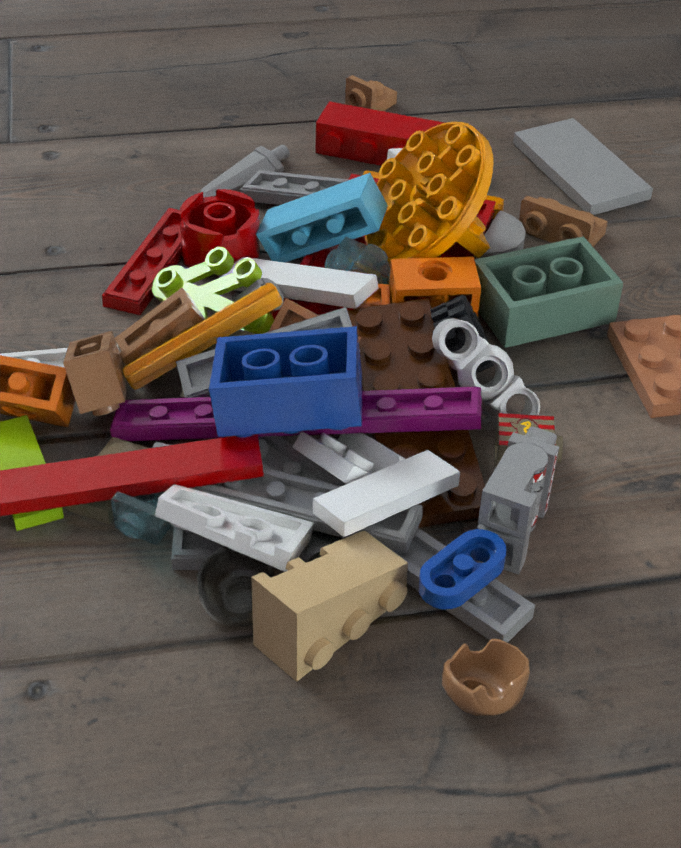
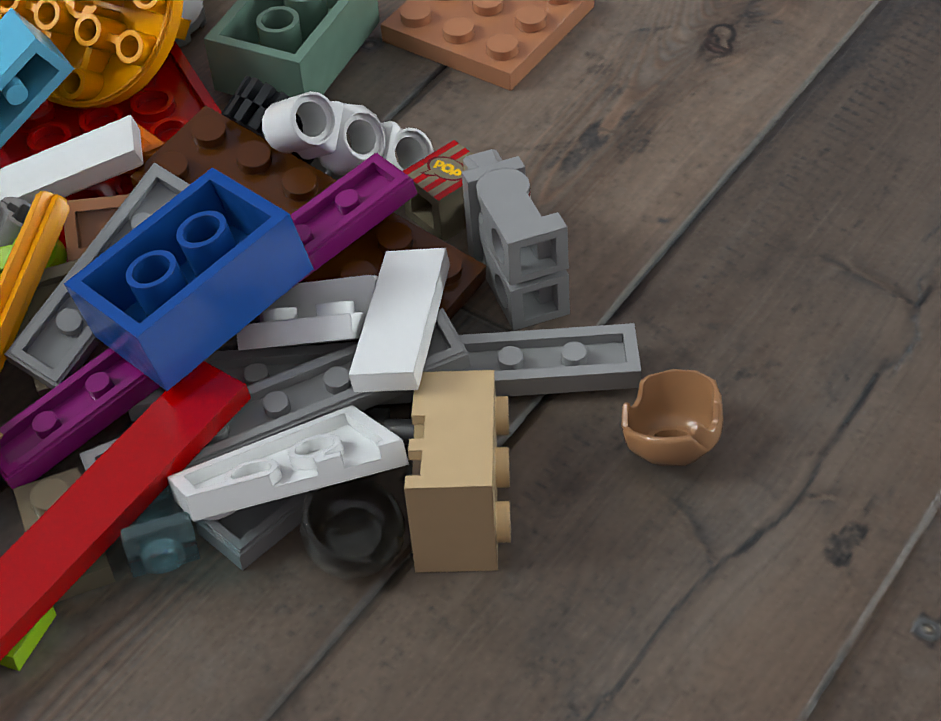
camera: 40 degrees left, 5 degrees up
(360, 258) = (73, 116): clear light blue bracket -> none
(434, 279) = (184, 84): orange brick -> none
(453, 574) = (547, 337): blue plate -> none

